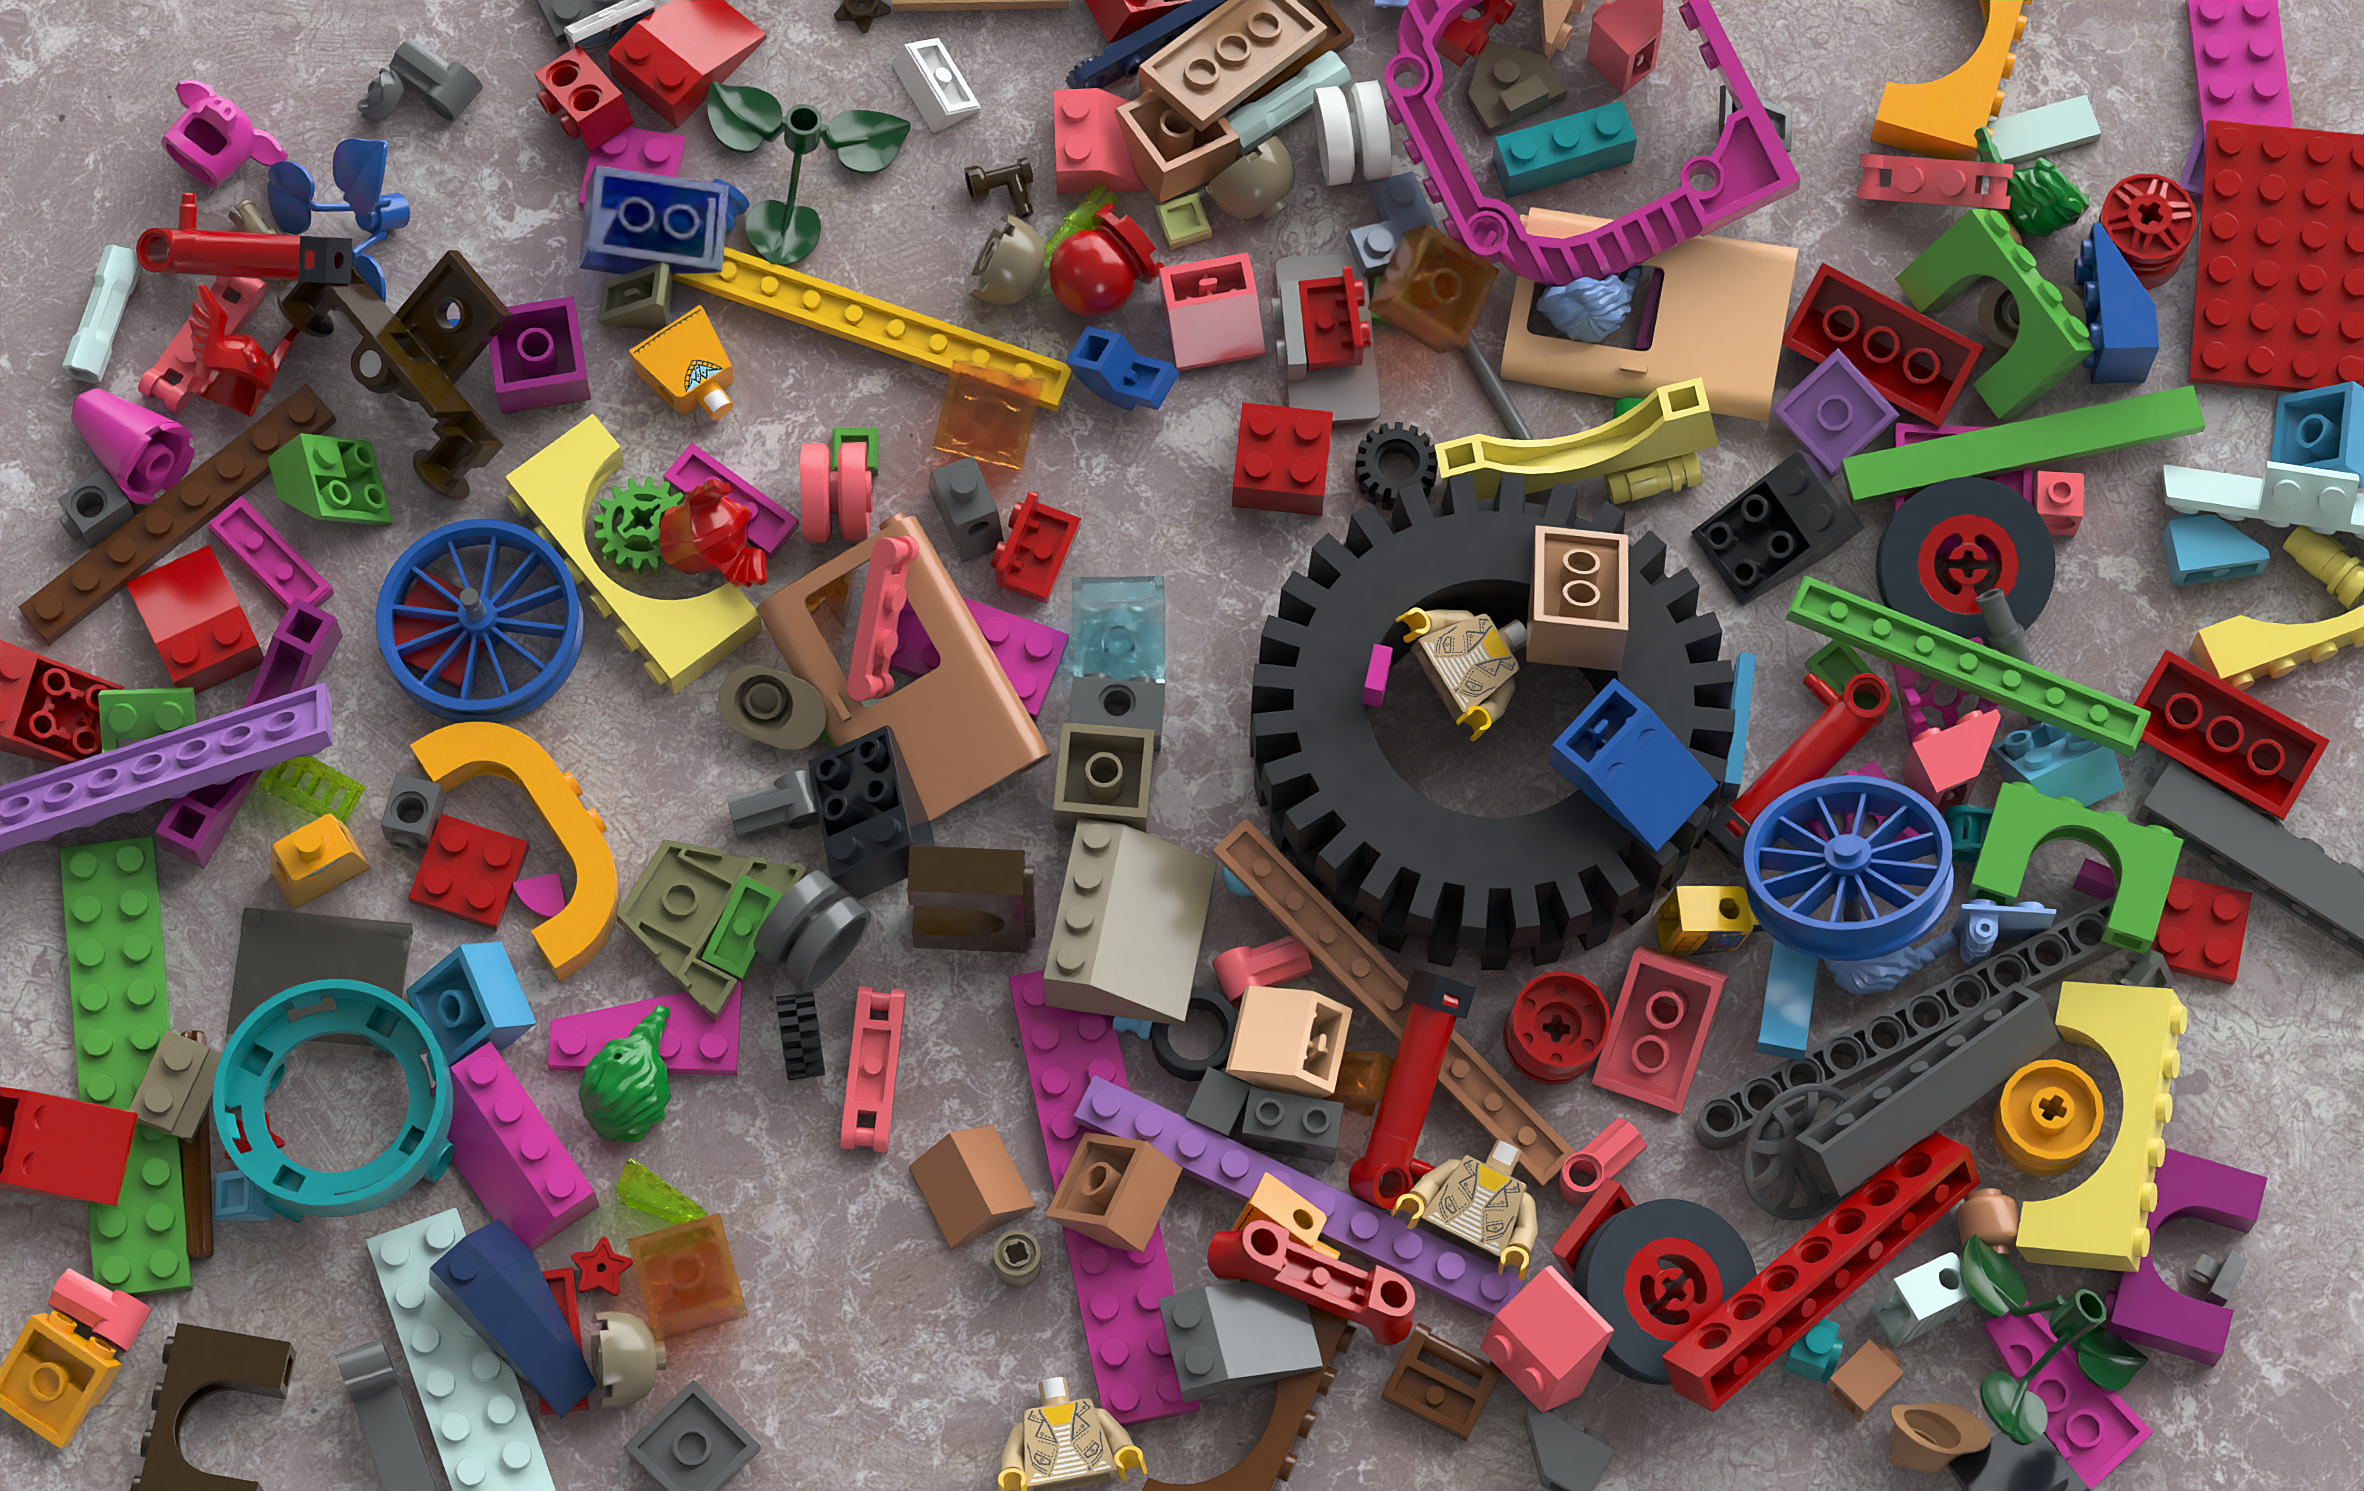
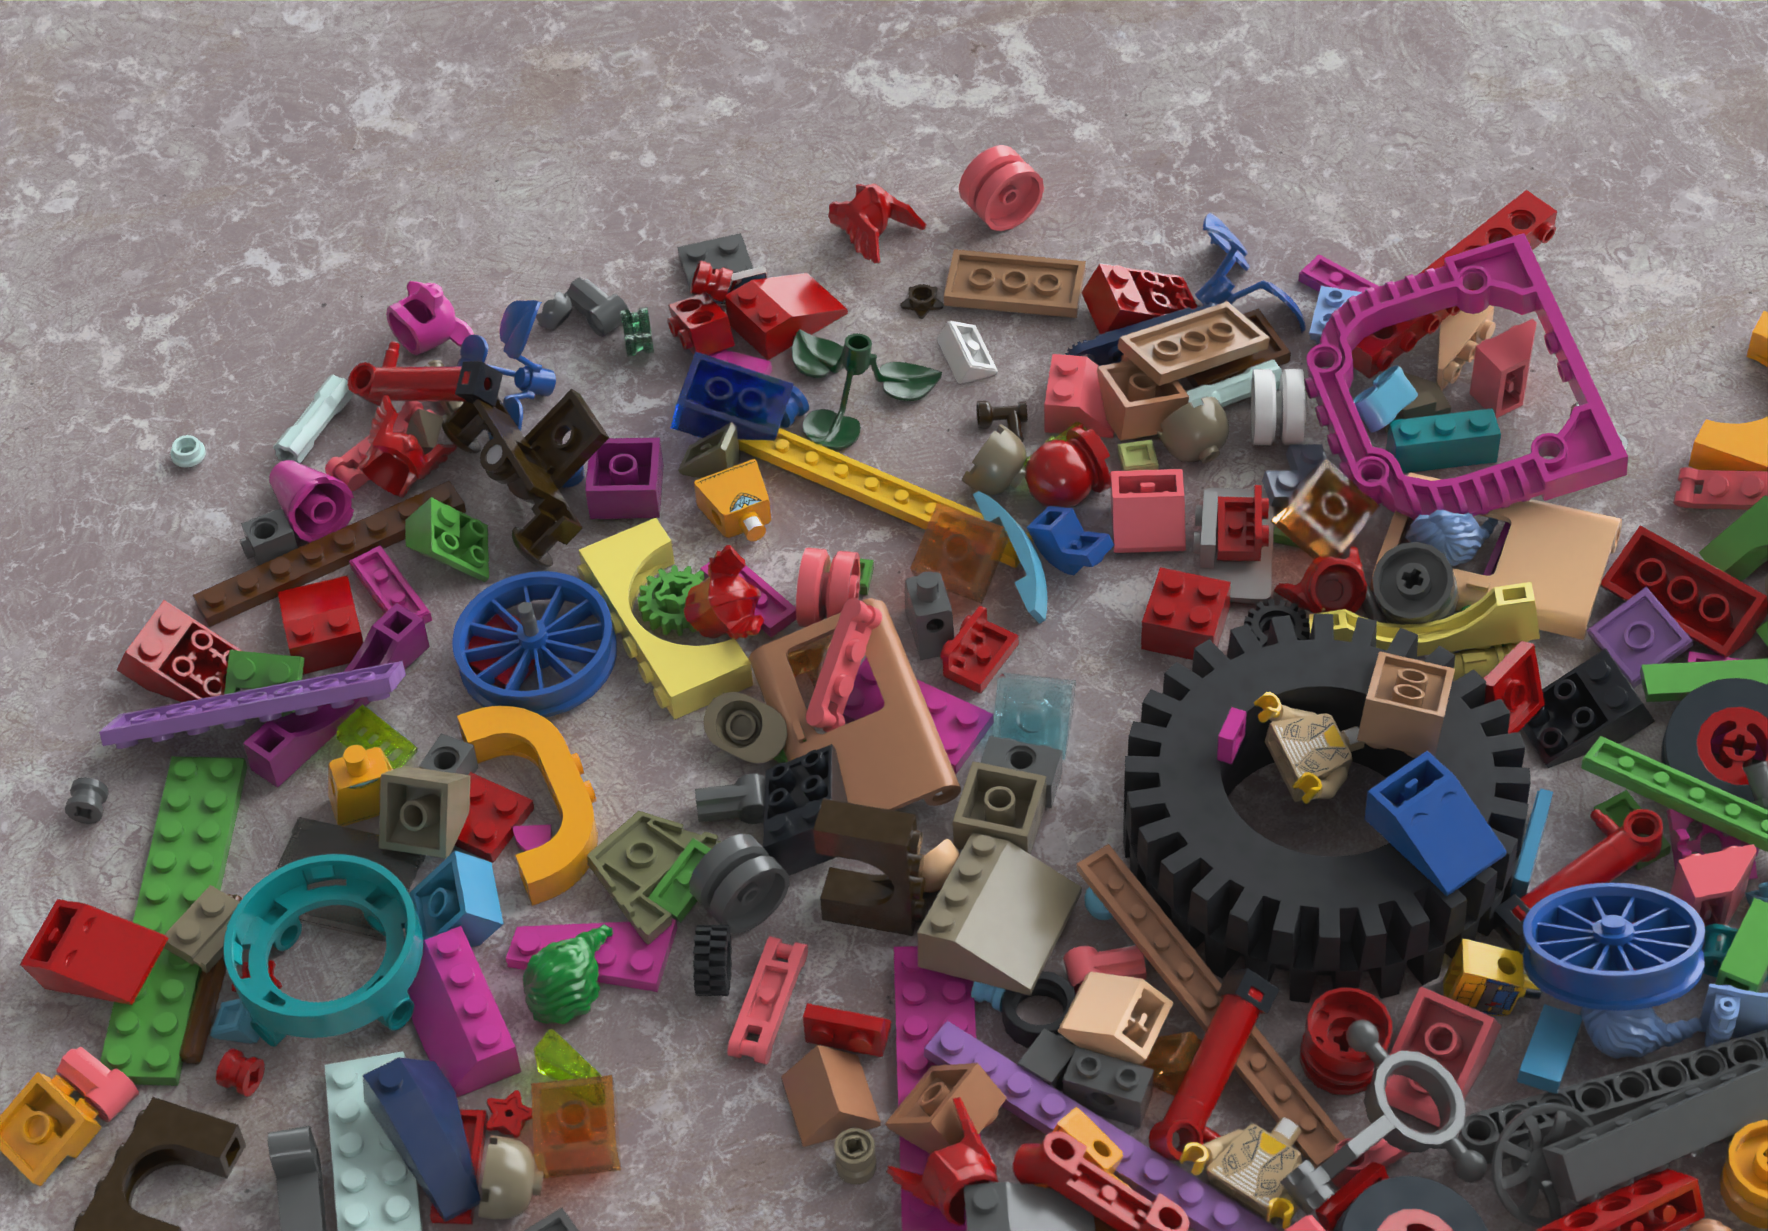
camera: 15 degrees right, 20 degrees down
(258, 319) = (425, 428): none -> dark tan slope
(268, 1267) = (240, 1072): none -> red wheel
(402, 886) = (422, 810): none -> dark tan slope
(506, 118) = (637, 331): none -> clear green wheel
(588, 39) = (712, 281): none -> red wheel
(975, 1096) = (846, 1030): none -> red bracket
(1049, 862) = (938, 865): none -> light nougat hair
(1089, 451) = (1033, 586): none -> medium azure slope
(1137, 1277) = (950, 1171): none -> red helmet
(1455, 396) = (1329, 585): none -> red helmet
(1499, 97) = (1385, 399): none -> medium azure beam
(1532, 392) = (1415, 584): none -> dark grey wheel
(1542, 1223) = (1310, 1185): none -> dark grey piece
(1696, 528) = (1517, 684): none -> red plate

